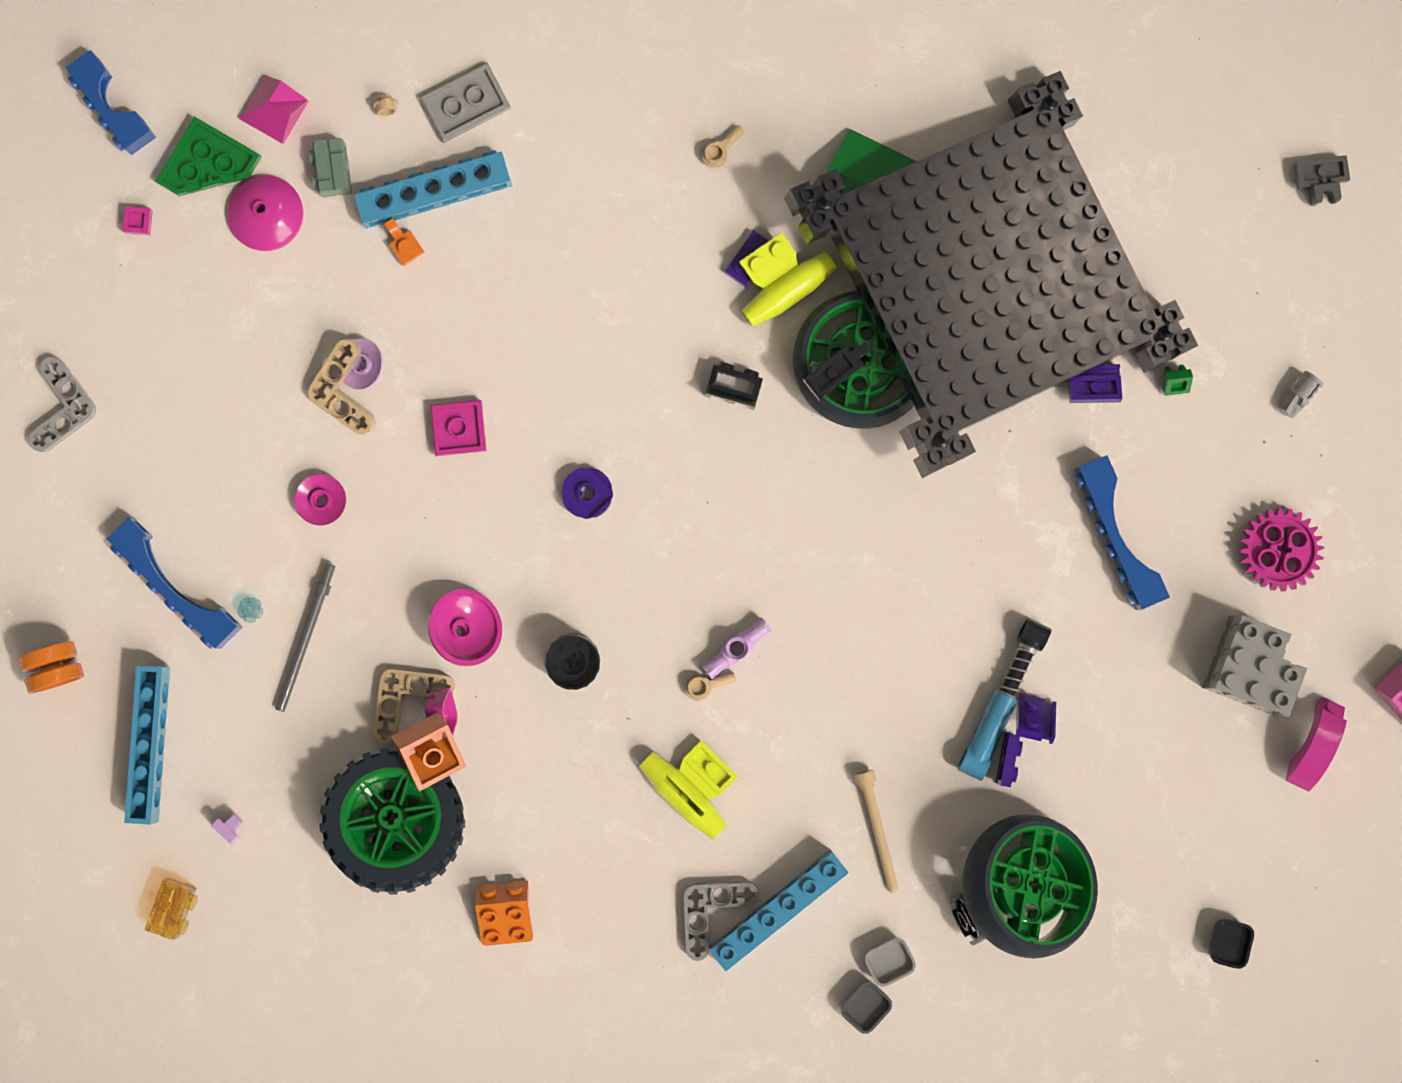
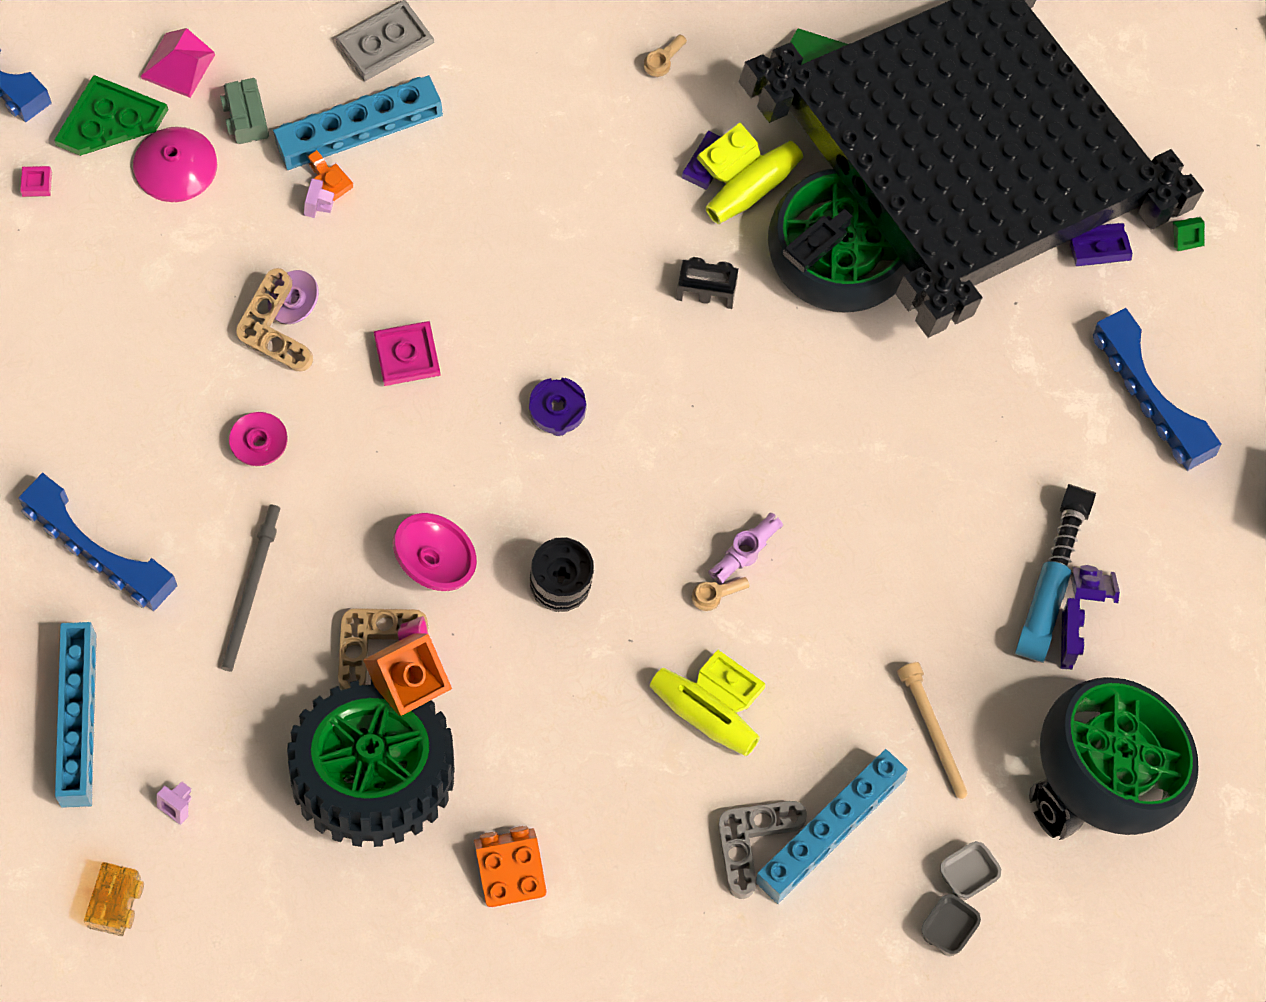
camera: 10 degrees left, 20 degrees down
(243, 608) = (185, 556): clear light blue plate -> none
(385, 105) = (299, 49): tan plate -> none
(389, 265) = (317, 199): none -> lavender tile

